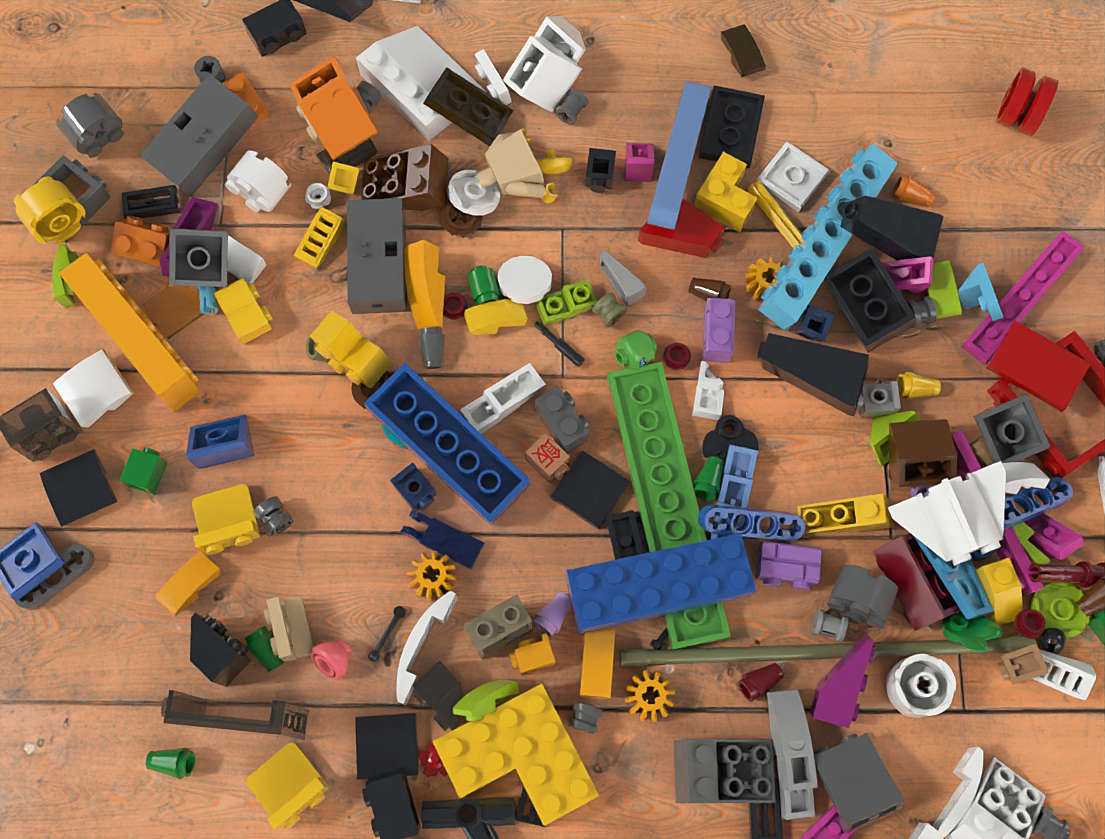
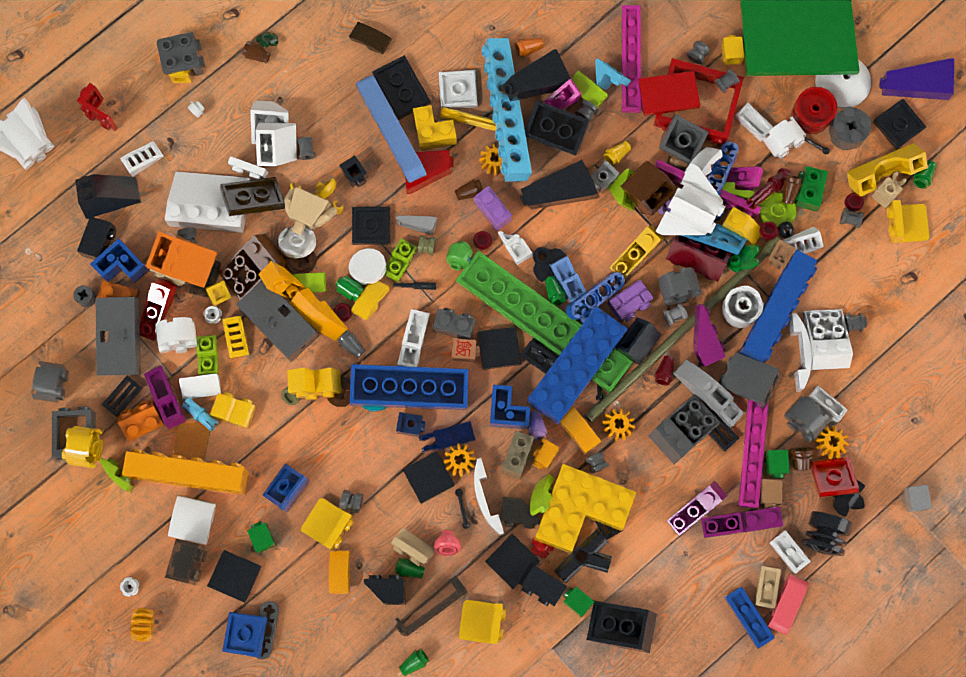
camera: 40 degrees left, 5 degrees up
(198, 257) = (186, 403): dark grey slope -> none
(271, 60) = (119, 258): none -> blue brick
(272, 138) = (156, 306): none -> red slope
(276, 231) = (207, 355): none -> lime slope
(381, 565) = (428, 477): none -> black tile
(415, 213) = (280, 280): none -> light orange slope
(451, 247) = (314, 281): none -> lime slope
(528, 561) = (505, 414): none -> blue brick
(568, 242) = (370, 225): none -> black tile
(639, 162) = (369, 148): dark pink slope -> none
(758, 618) = (638, 340): none -> black brick
(813, 324) = (540, 164): dark blue brick -> none
(967, 724) = (778, 306): none -> blue brick

